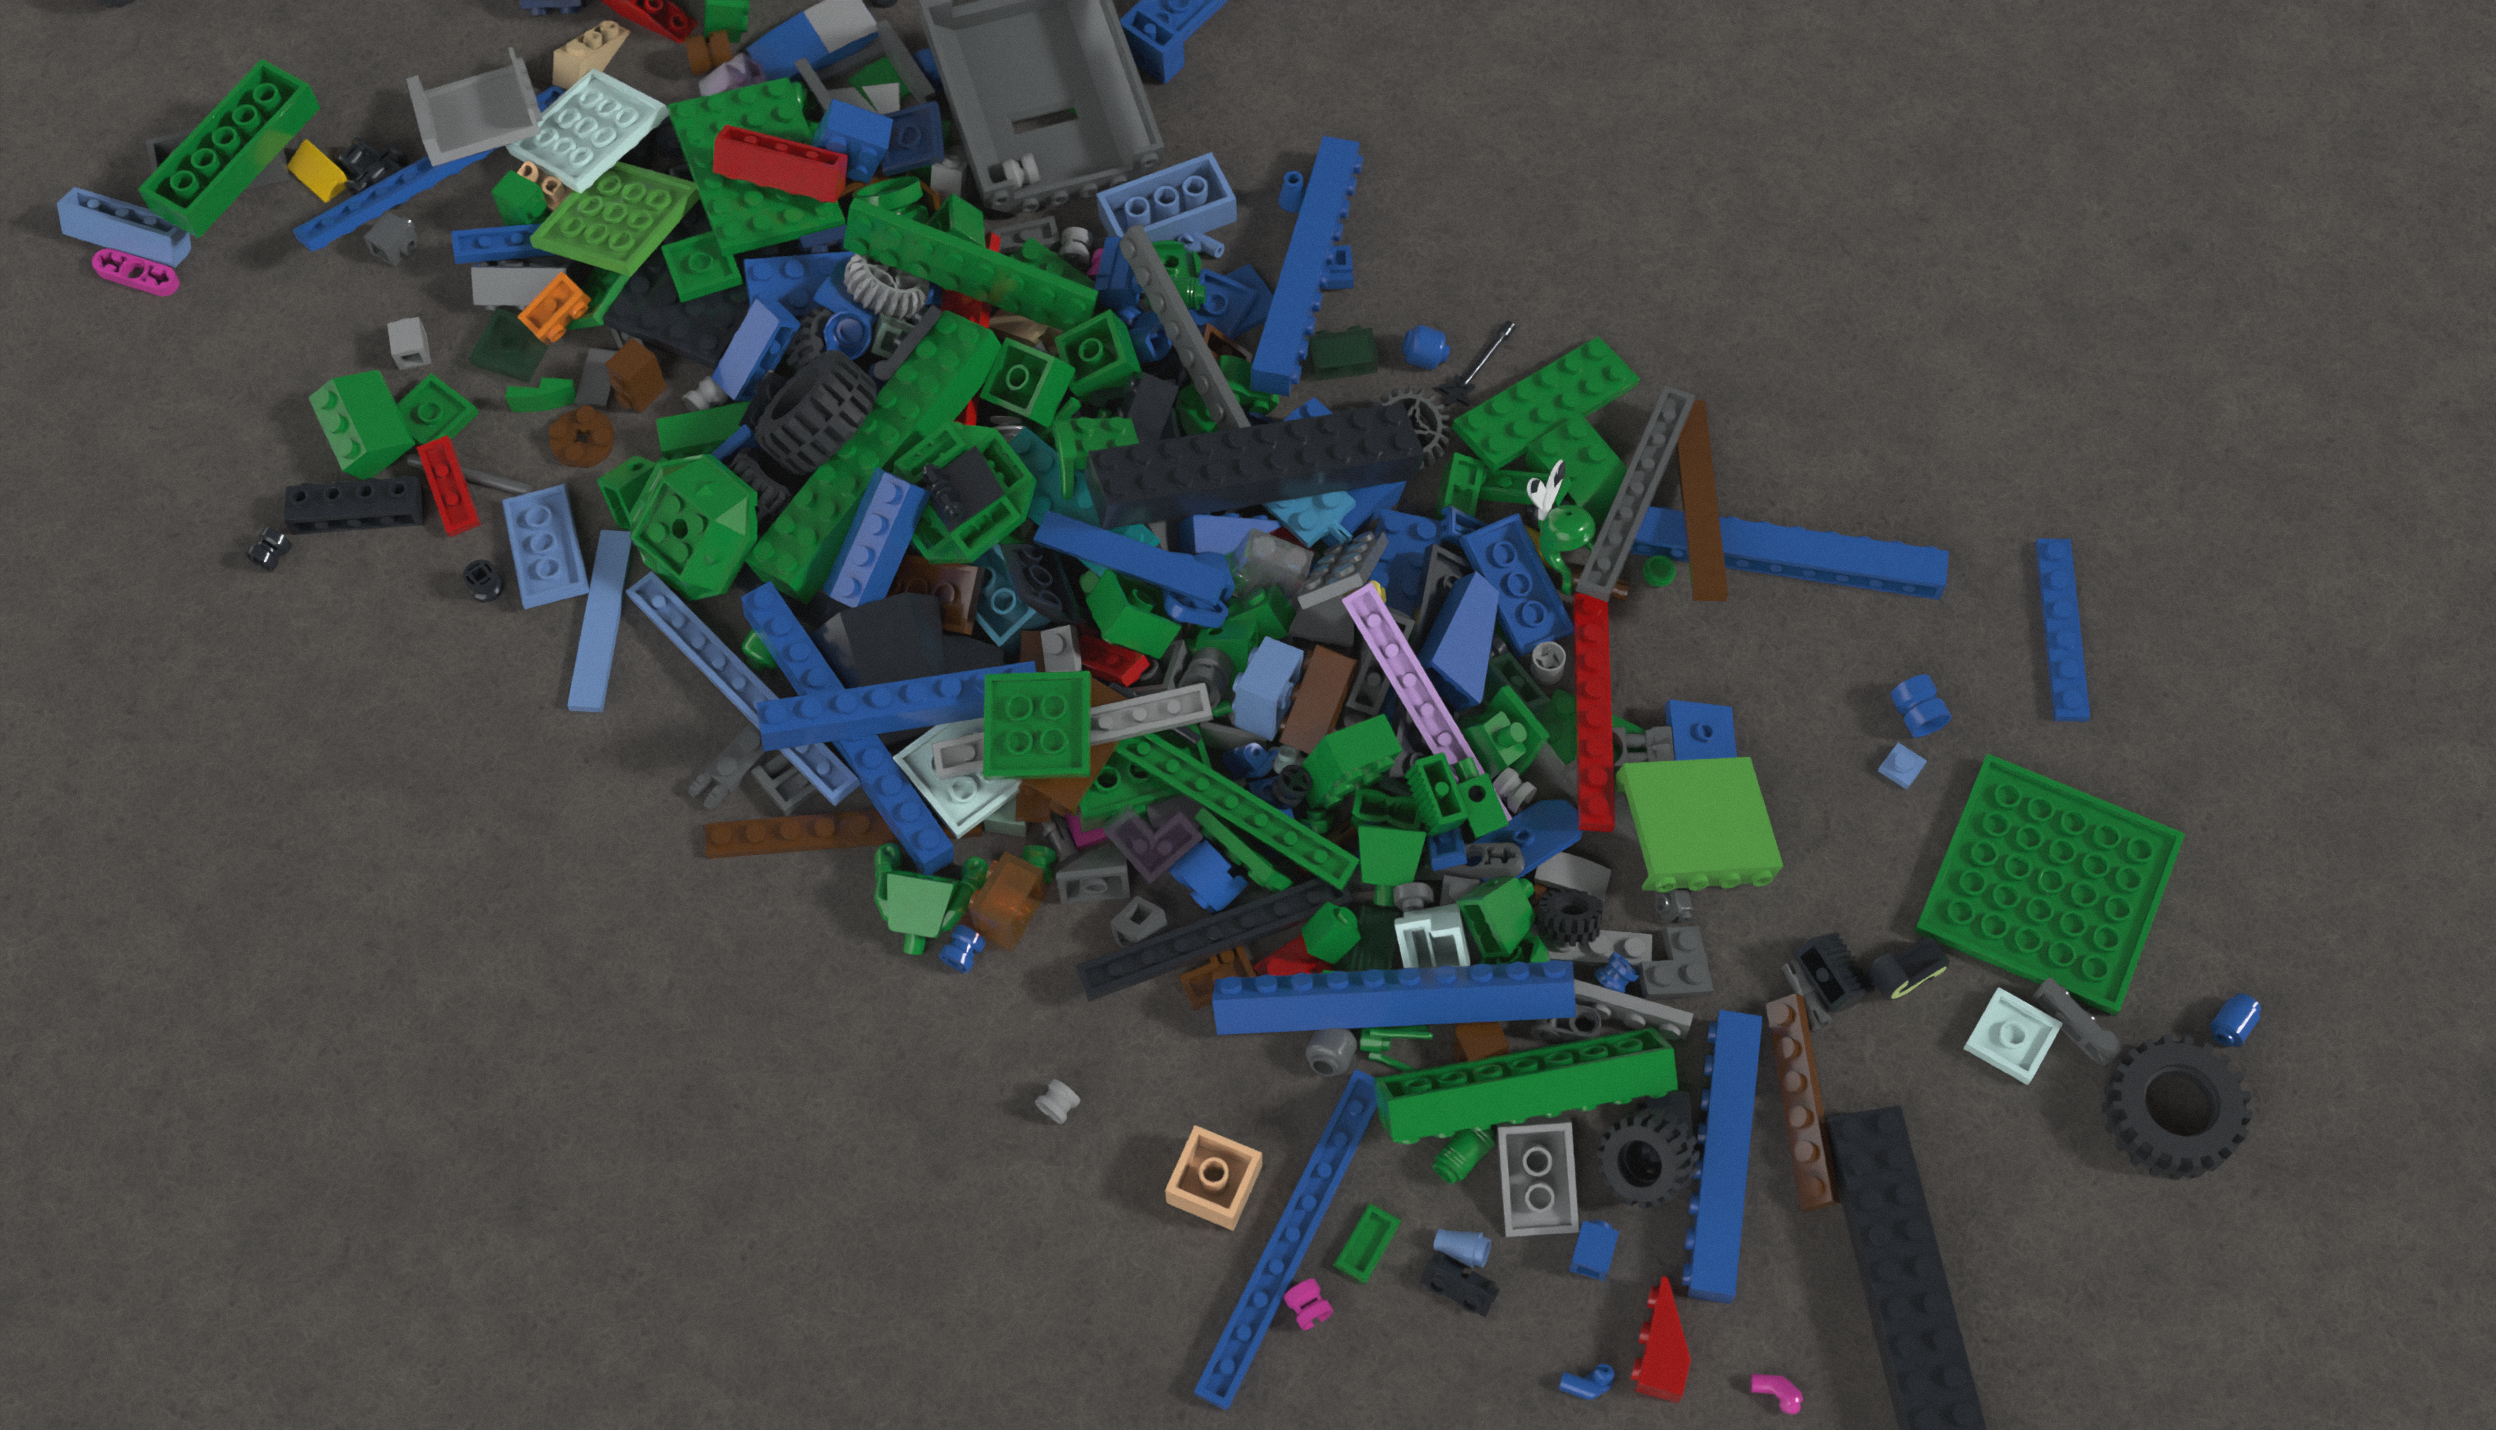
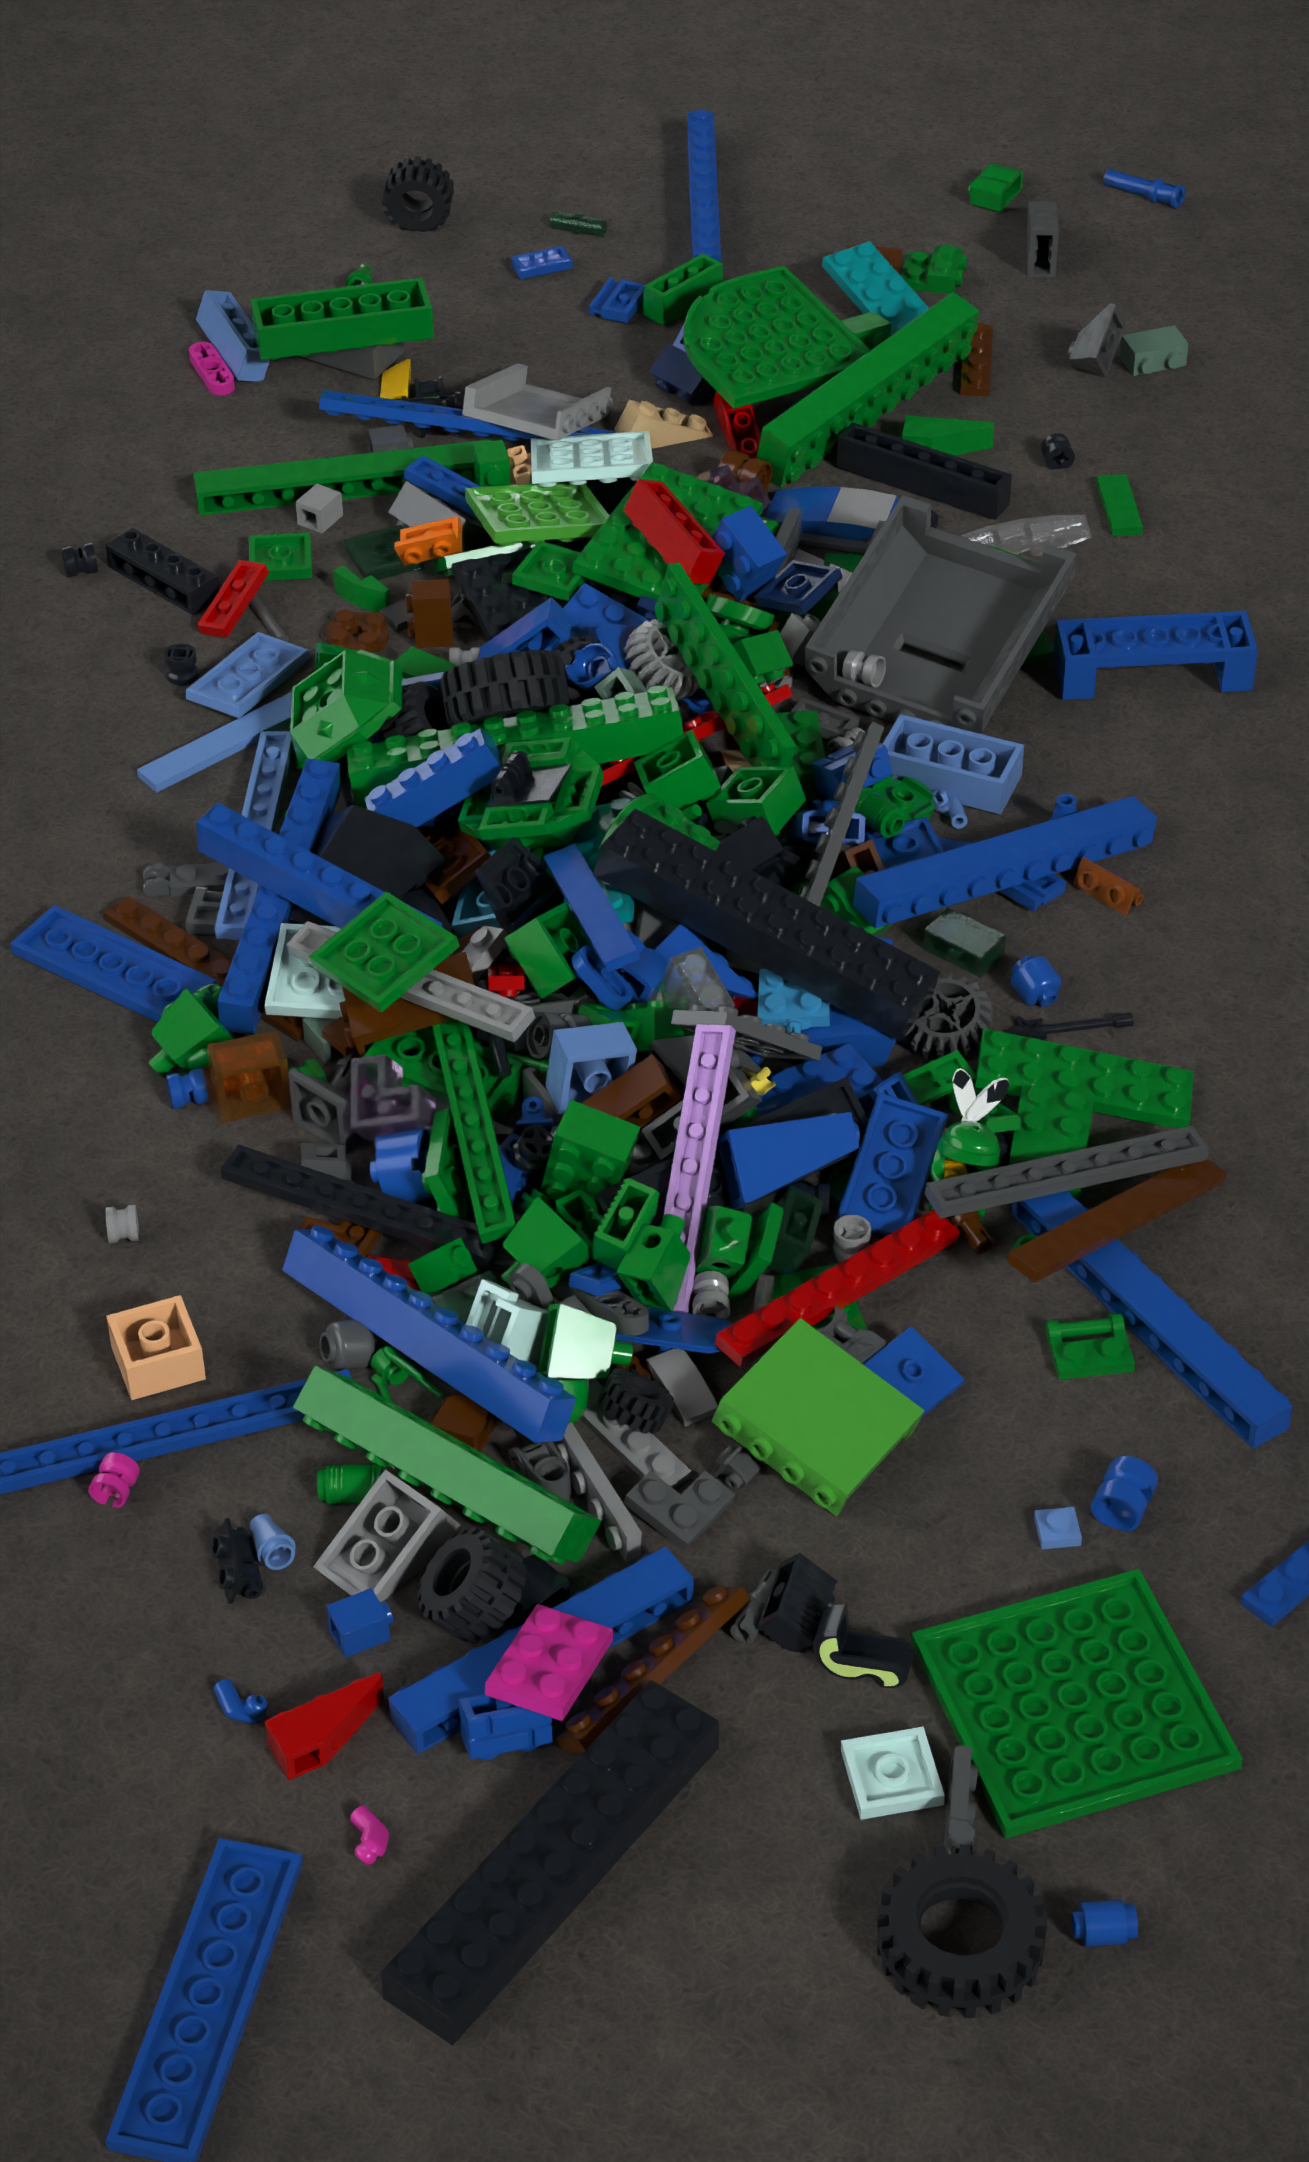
camera: 45 degrees right, 20 degrees down
(159, 89) = (361, 276): none -> green cone
(362, 423) = (225, 526): green slope -> none
(388, 299) = (350, 474): none -> green brick
(771, 895) = (106, 962): none -> blue plate
(906, 342) = (635, 683): black plate -> none
(1367, 1243) = (209, 1485): green tile -> none
(1378, 227) = (1106, 887): none -> dark orange hinge
(1616, 973) = (623, 1466): blue wheel -> none
(1765, 1167) = (549, 1662): none -> dark pink plate
(1772, 1231) = (500, 1727): none -> blue brick
(1780, 617) = (1090, 1356): none -> green plate

